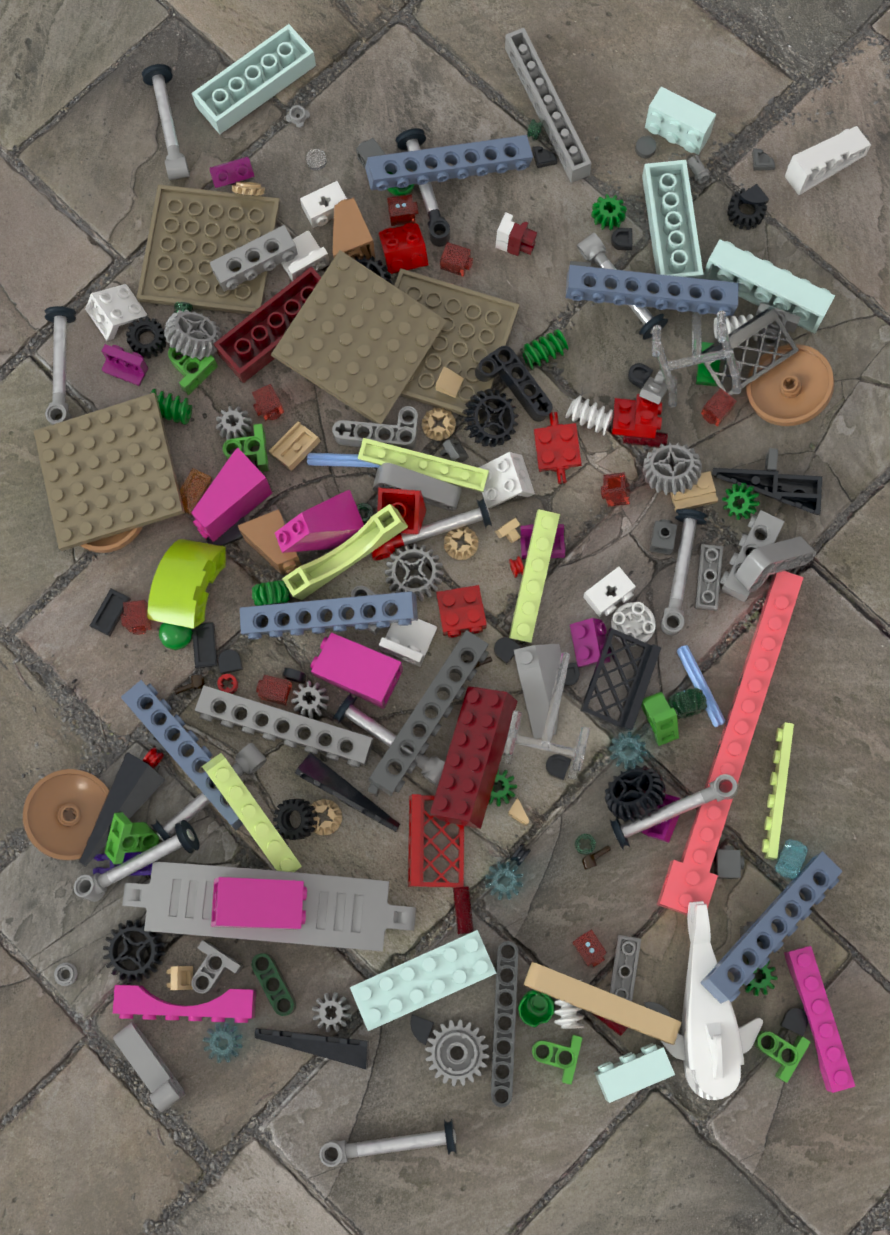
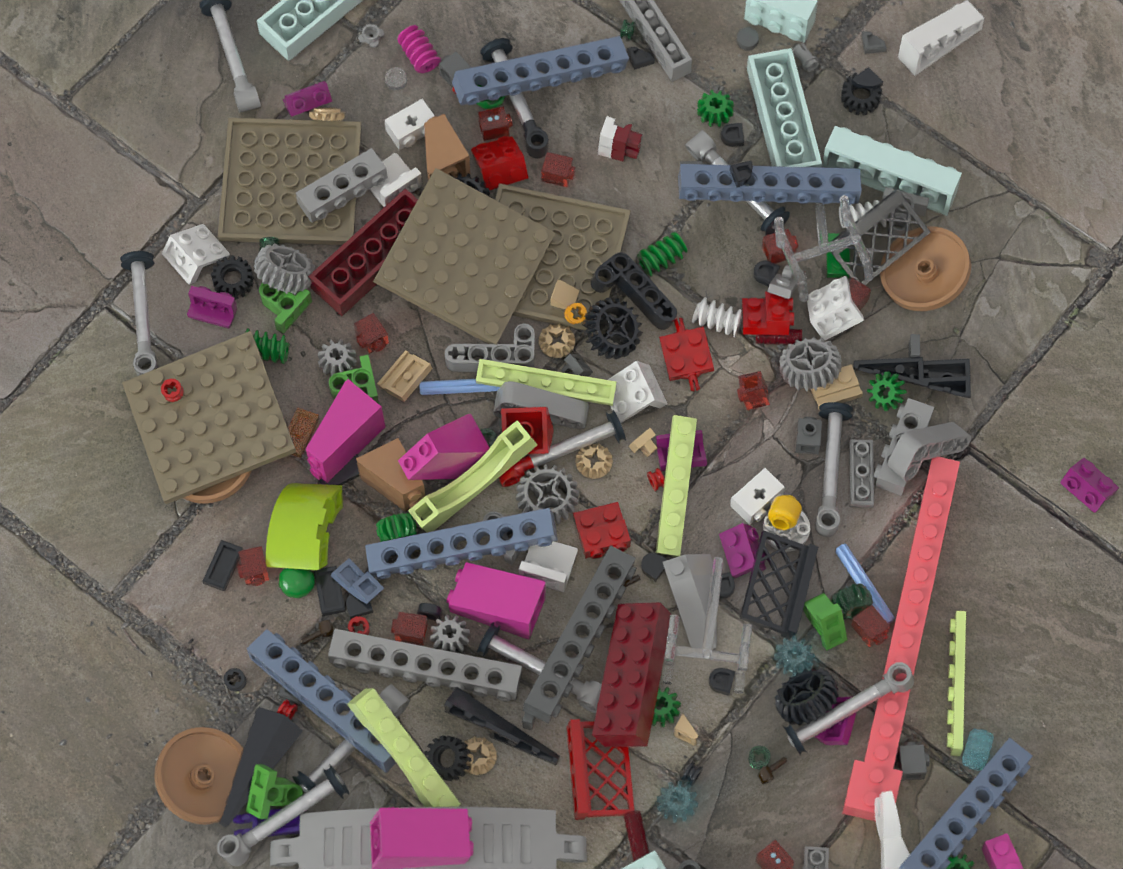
camera: 10 degrees left, 10 degrees down
(75, 437) = (169, 384): none -> red bush
(107, 716) = (231, 674): none -> black bush
(229, 640) = (357, 583): none -> sand blue slope
(339, 132) = (418, 49): none -> dark pink piece
(451, 402) = (569, 315): none -> light orange bush
(626, 278) = (741, 172): none -> black tile
(633, 611) = (784, 512): none -> yellow head
(645, 351) = (774, 253): none -> clear red brick
(699, 416) = (833, 309): none -> white bracket
(702, 729) = (871, 626): none -> clear red brick

